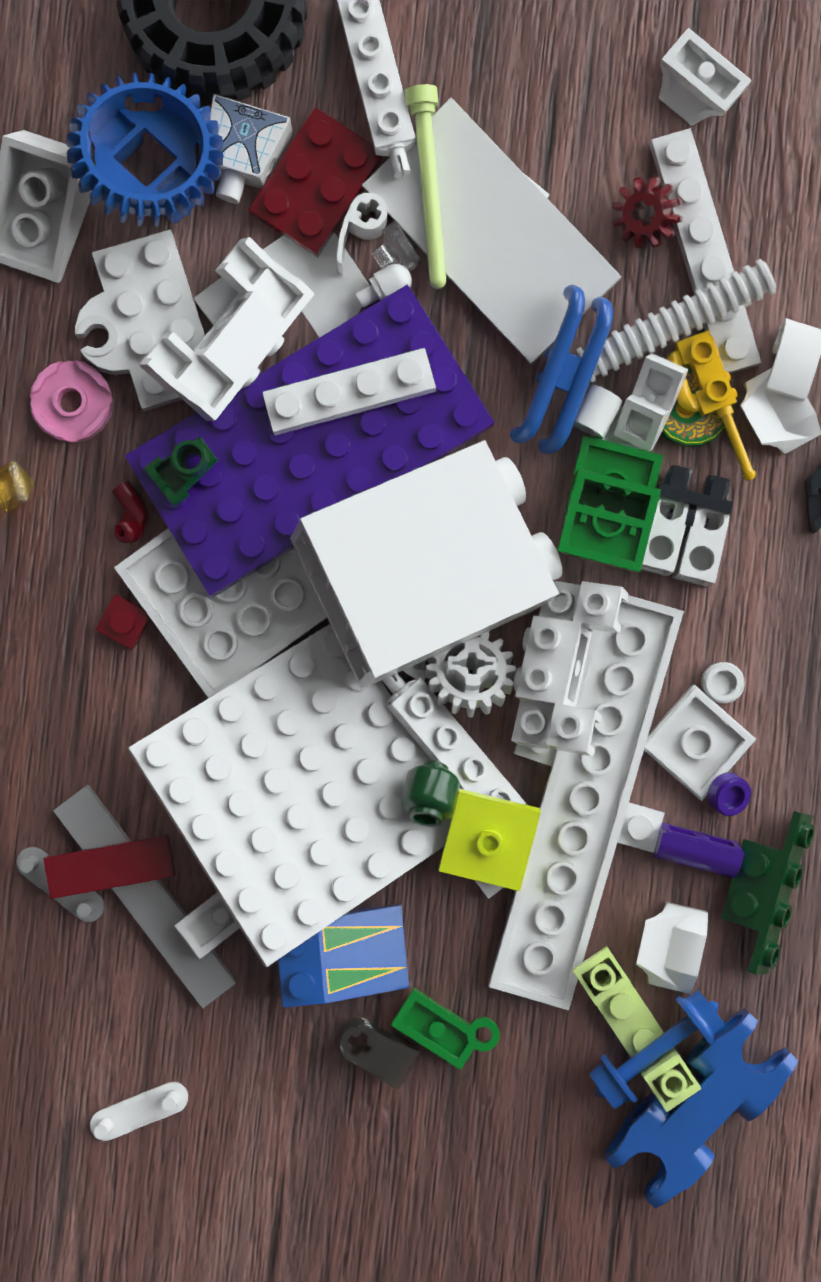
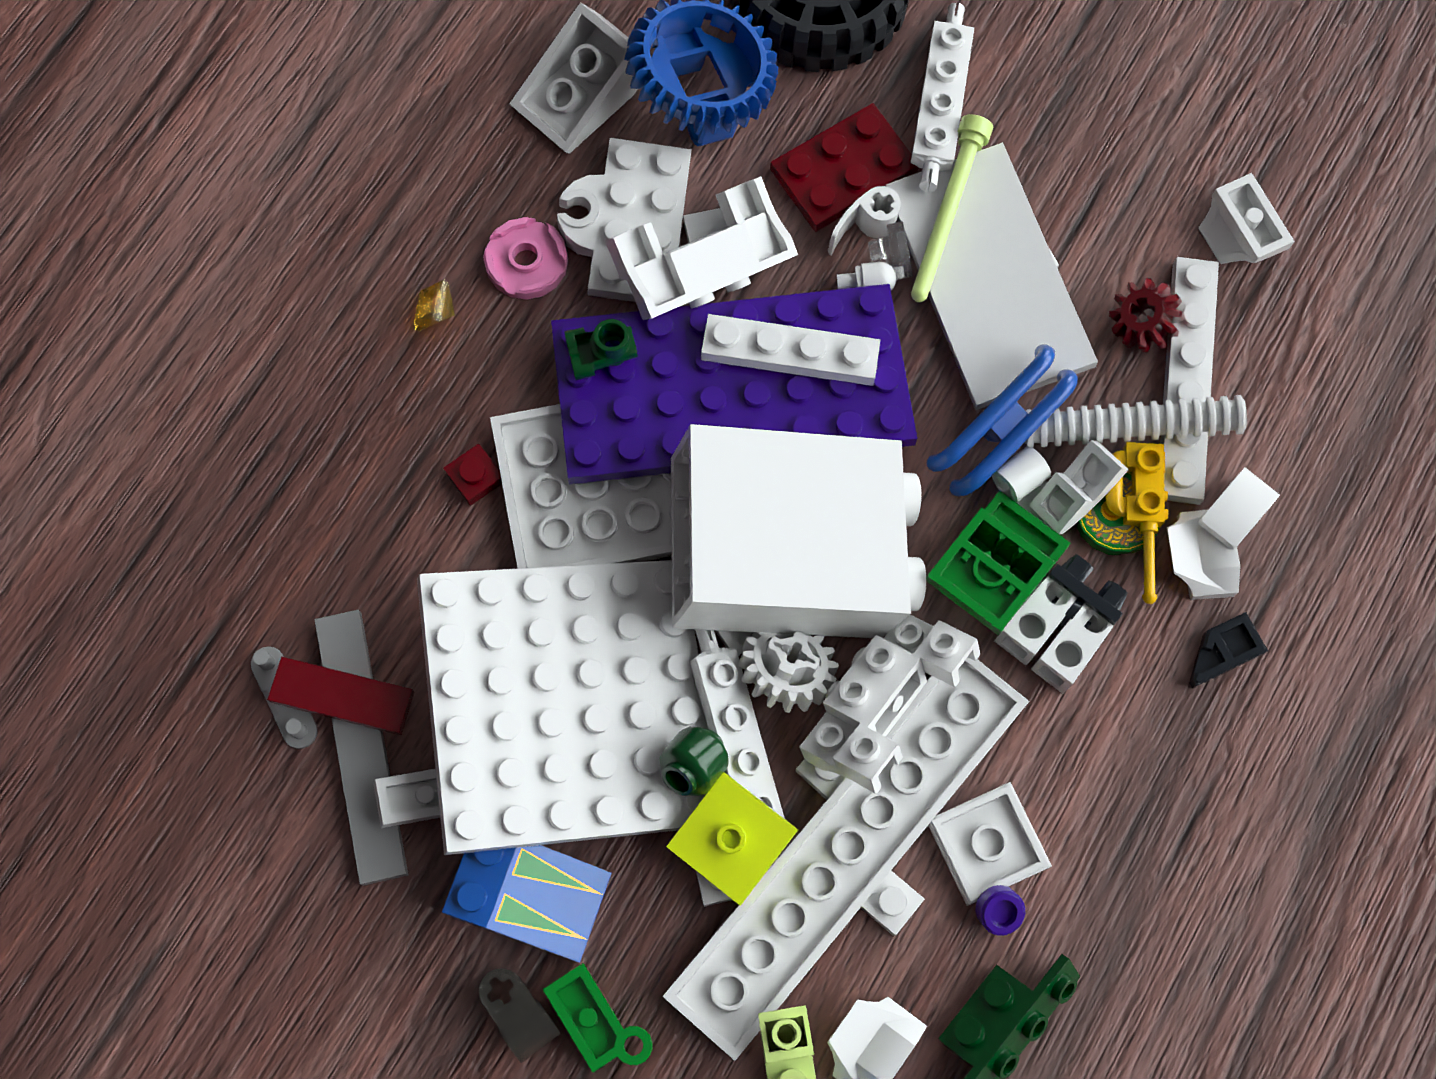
camera: 25 degrees right, 15 degrees down
(134, 514) = (533, 381): dark red arm -> none
(139, 1111) = (241, 965): white piece -> none
(251, 145) = (798, 108): torso -> none
(334, 293) = (813, 266): white sticker -> none
(698, 850) = (943, 955): dark purple brick -> none
(722, 682) = (1040, 794): white tile -> none

